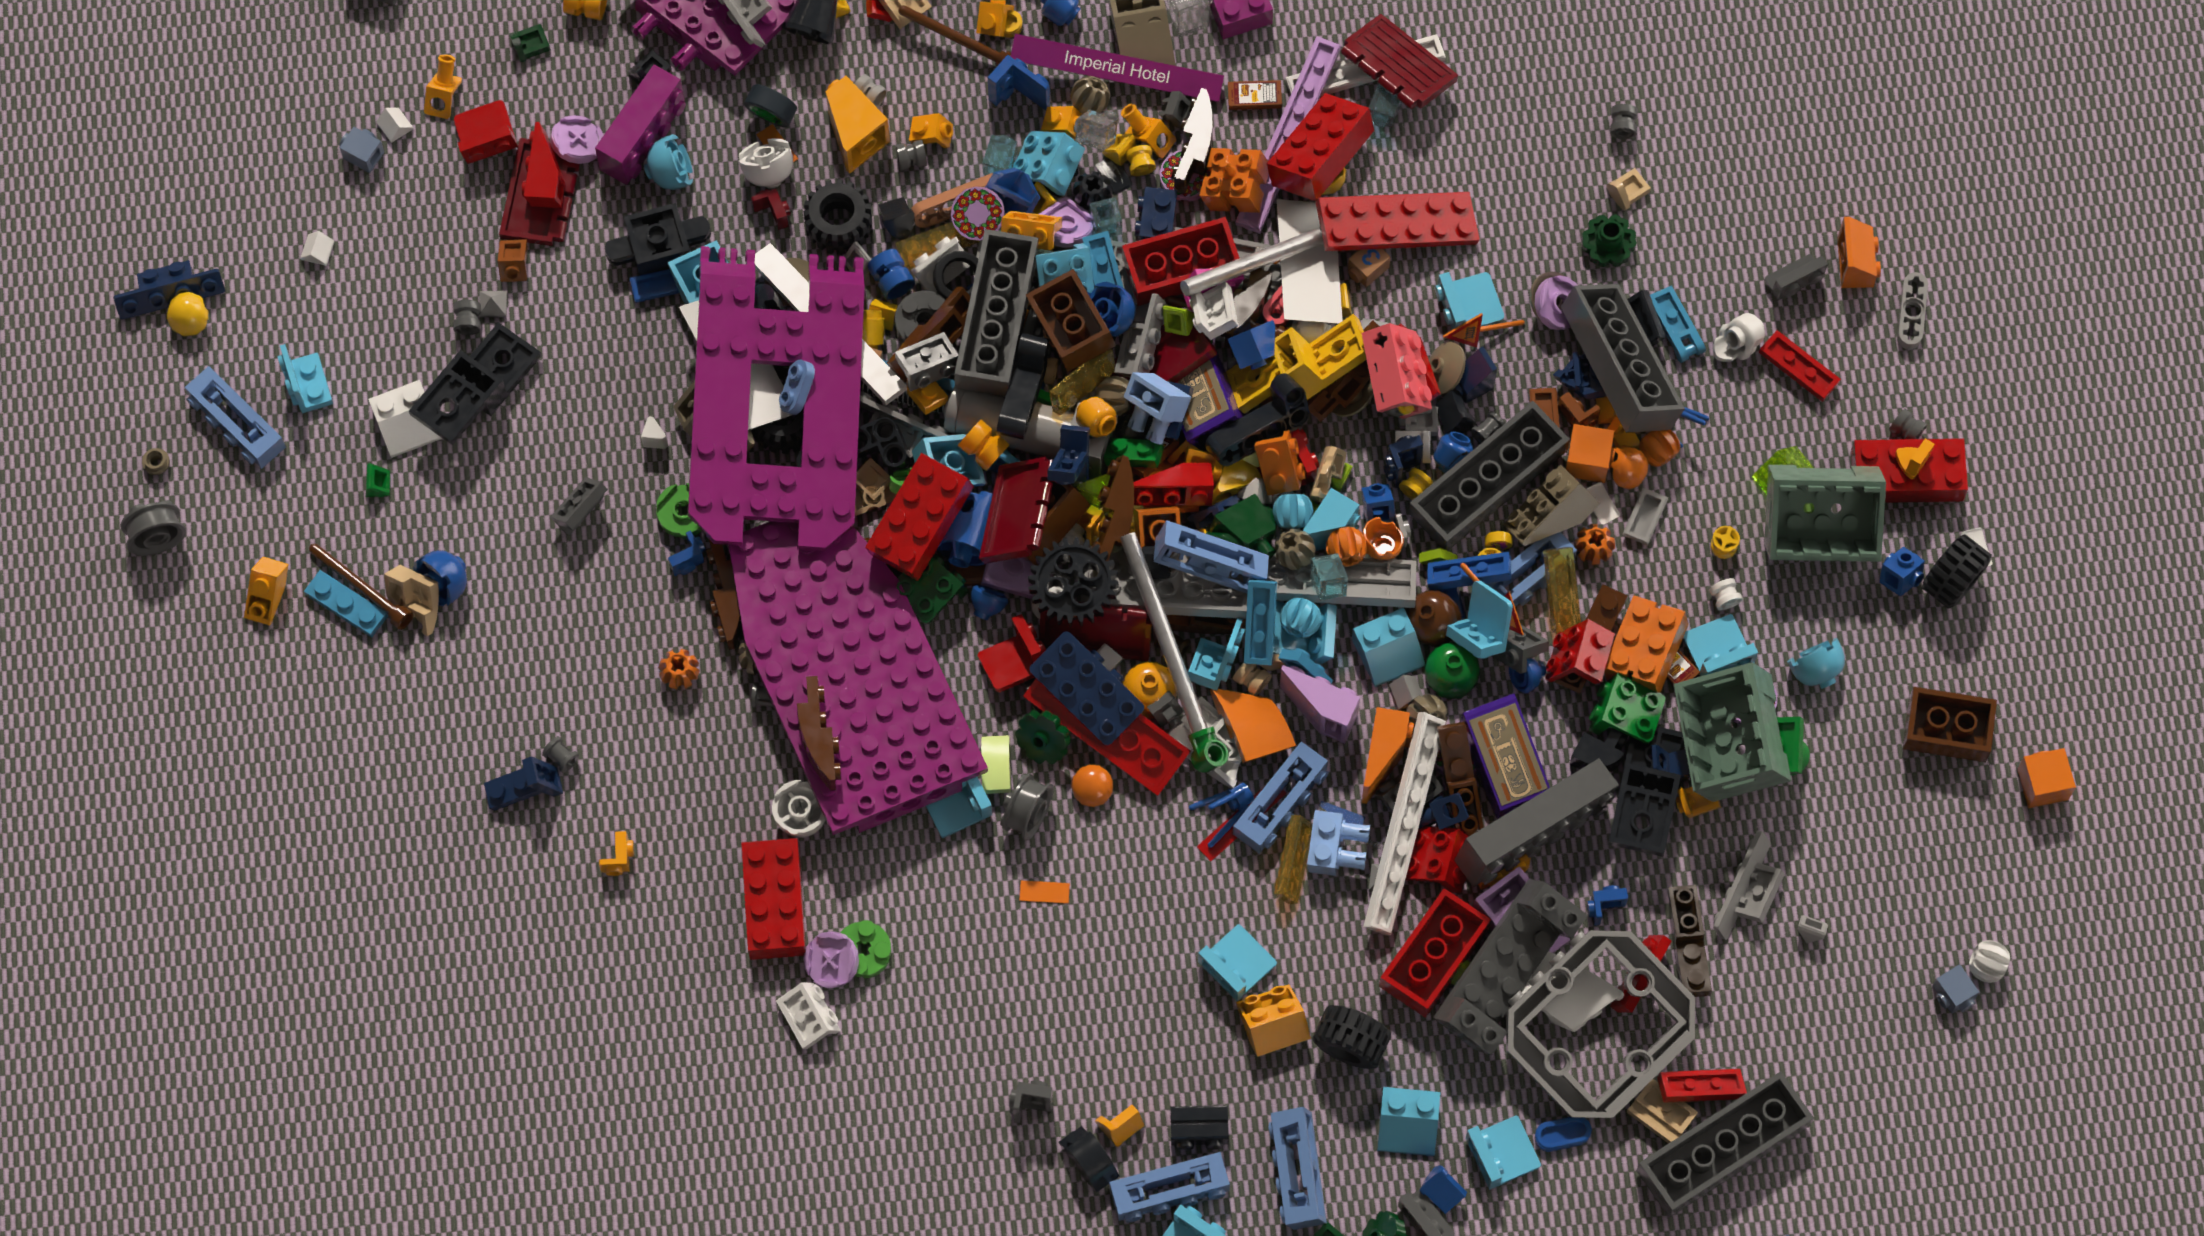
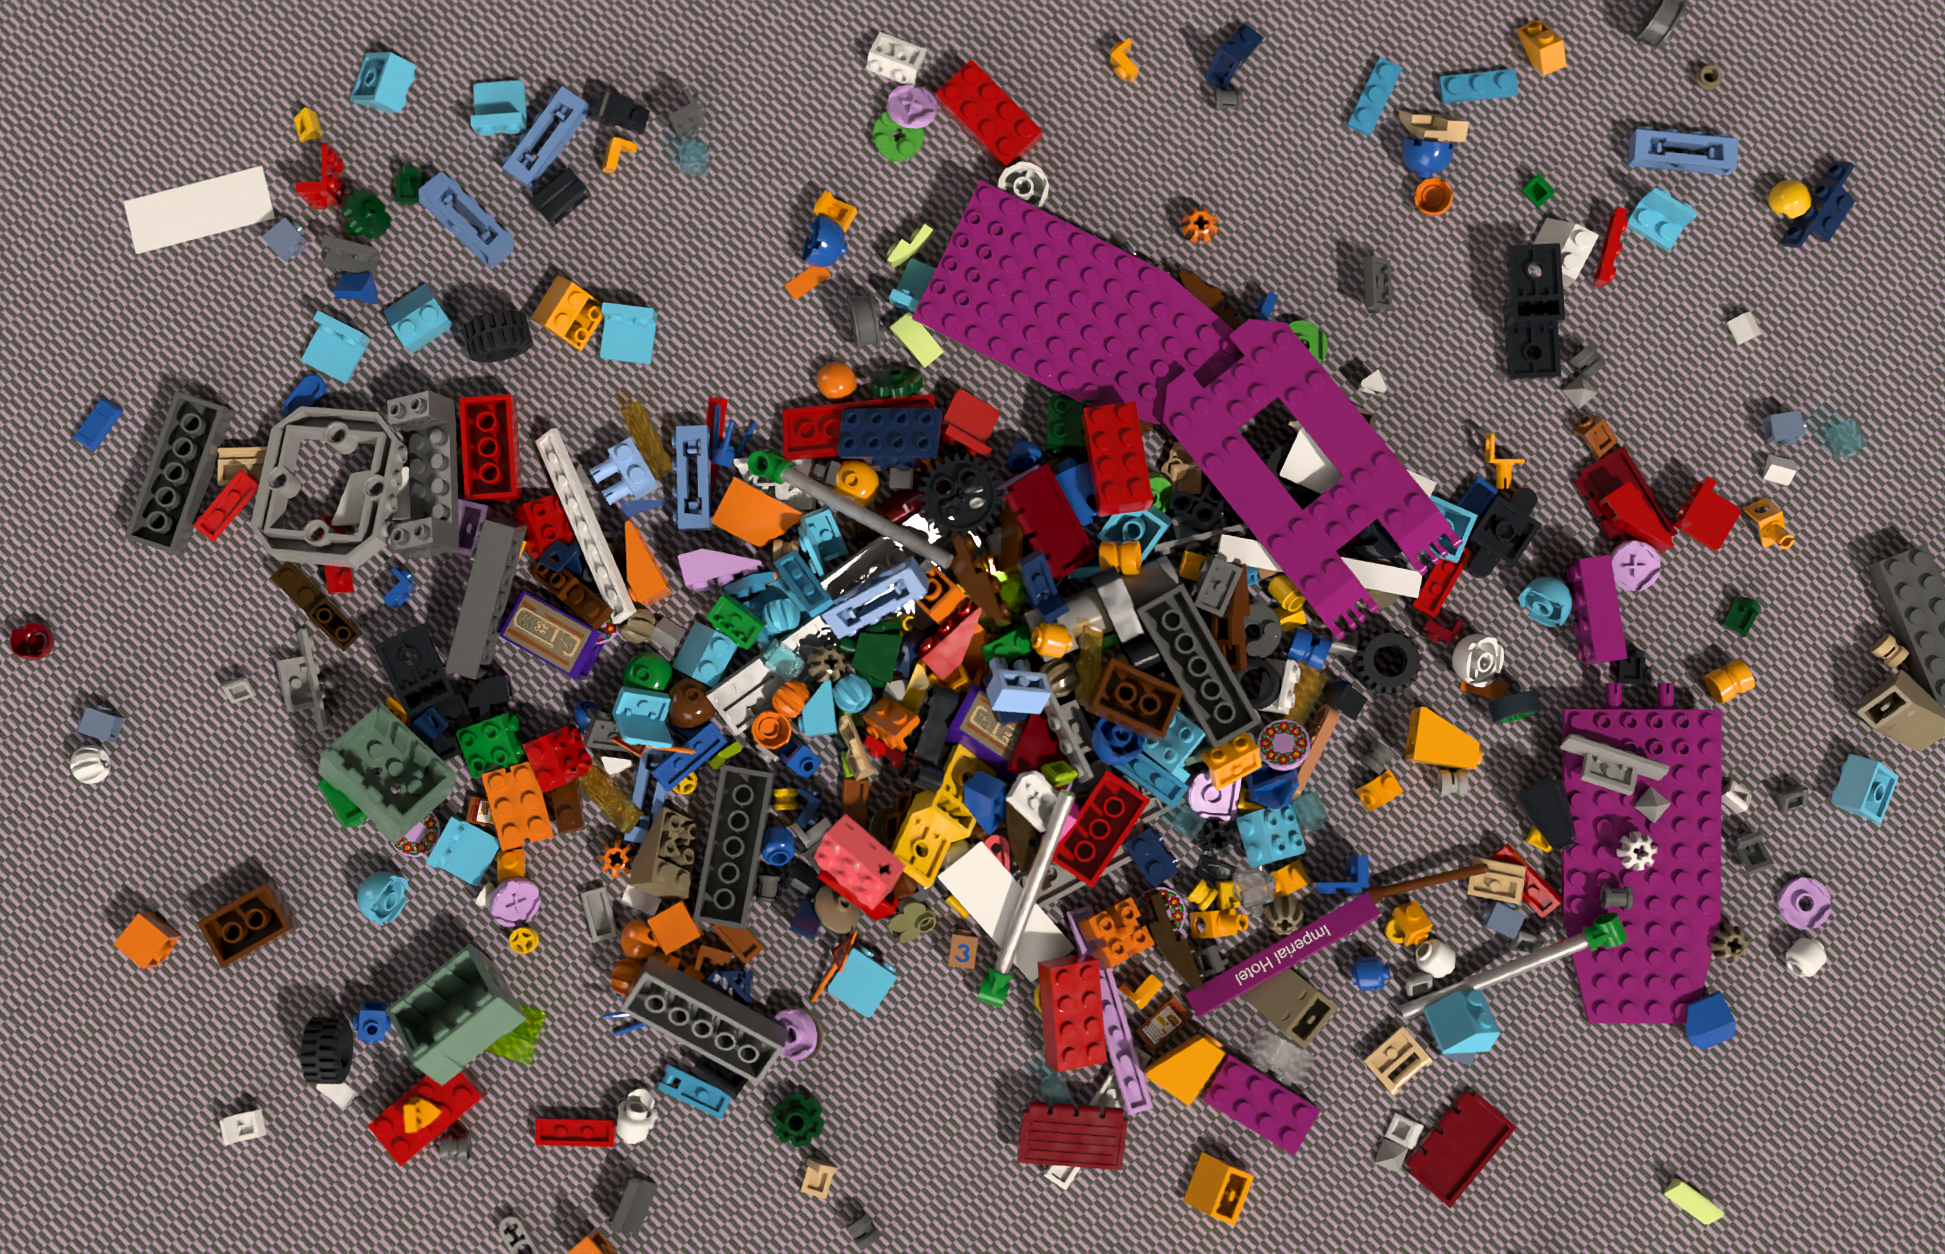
camera: 140 degrees right, 15 degrees up
(323, 104) = (1844, 440): none -> clear light blue brick
(364, 389) = (1611, 247): none -> red plate
(399, 615) = (1432, 103): reddish brown piece -> none
(438, 663) = (1374, 97): none -> dark azure plate
(468, 538) = (1433, 196): none -> orange hair
(607, 295) = (1503, 465): none -> light orange bracket
(750, 238) = (1439, 584): none -> red plate
(797, 387) = (1293, 486): medium blue plate -> none
(816, 737) = (1042, 227): reddish brown slope -> none
(945, 844) = (904, 251): none -> yellowish green slope
(973, 923) = (835, 209): none -> light orange bracket
(1007, 903) = (825, 243): none -> blue cylinder
(1055, 1063) = (695, 158): none -> clear light blue brick
(1248, 124) = (1144, 992): none -> light orange tile
(1264, 44) = (1186, 1067): none -> light orange slope
(1341, 642) = (735, 621): none -> green bracket
(1364, 440) = (855, 800): none -> dark orange tile
(1384, 313) = (912, 921): none -> olive plate
(1397, 221) = (966, 999): plate -> none
(1499, 540) = (691, 804): yellow tile -> none
(1534, 618) = (616, 765): none -> white slope
(1693, 601) = (511, 864): none -> light orange bracket
(1708, 573) = (514, 901): none -> lavender tile
(1964, 1104) = (32, 641): none -> dark red hair
(2074, 573) = (242, 1126): none -> white bracket

